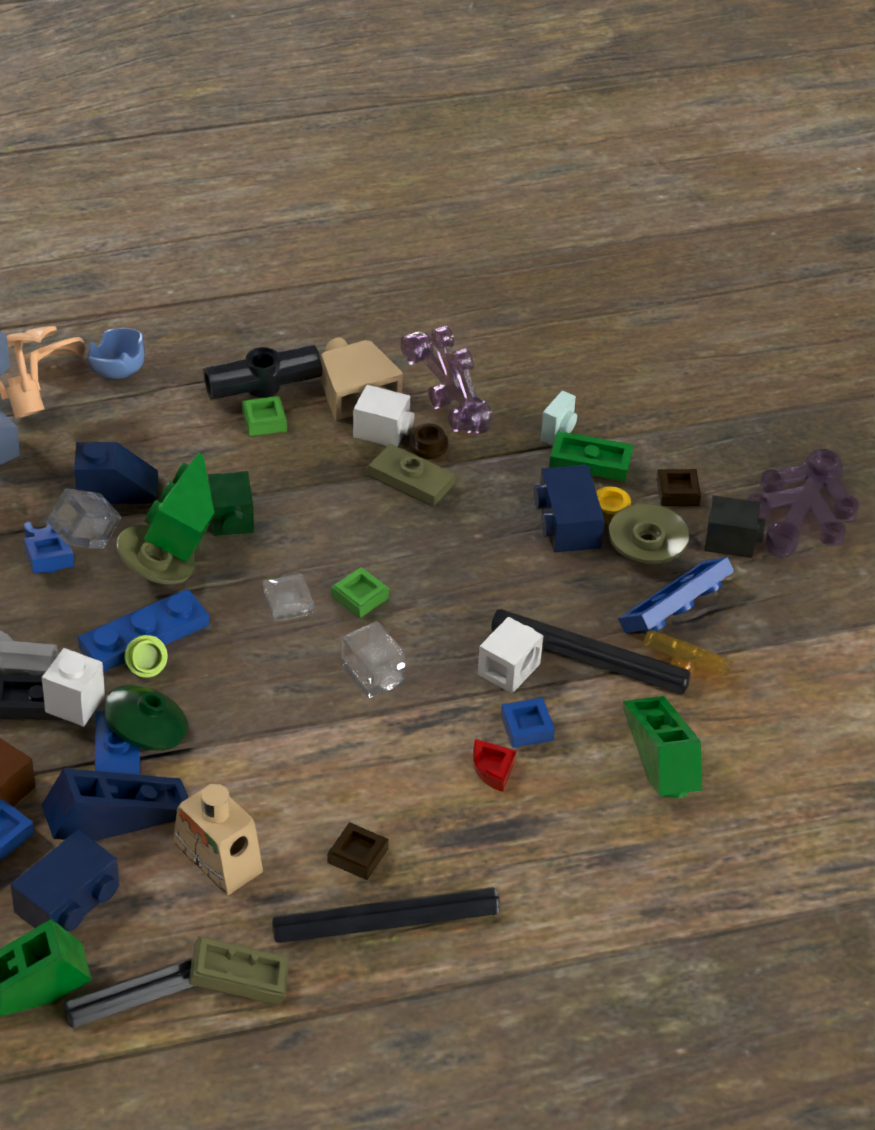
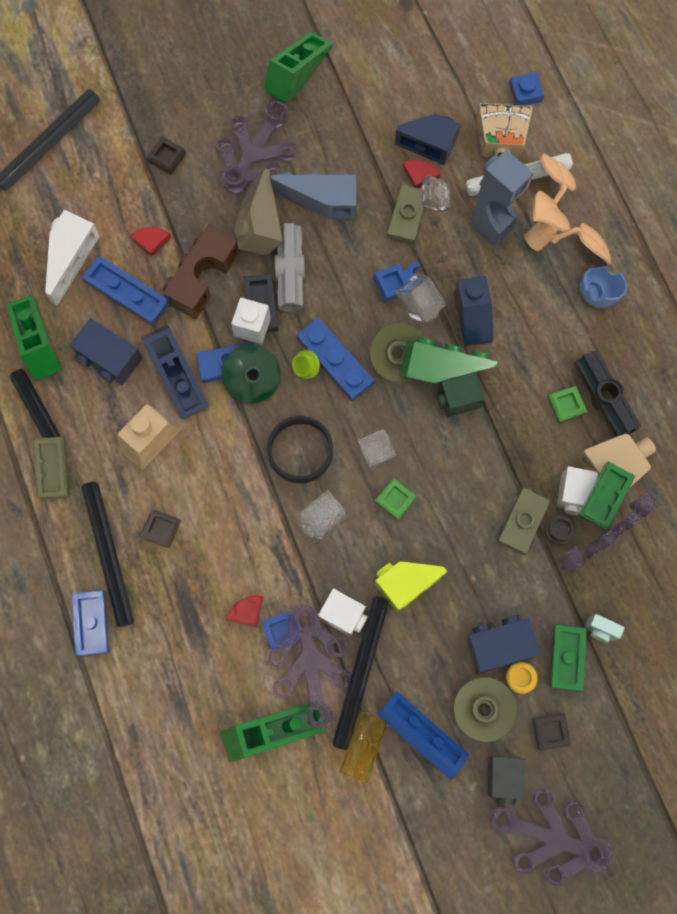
camera: 85 degrees right, 30 degrees up
(270, 647) = (300, 420): none -> black tyre
(400, 376) = (606, 495): none -> green plate
(479, 586) = (406, 581): none -> neon yellow slope
(491, 938) = (90, 623): none -> plate
(581, 687) = (309, 661): none -> clear purple plant

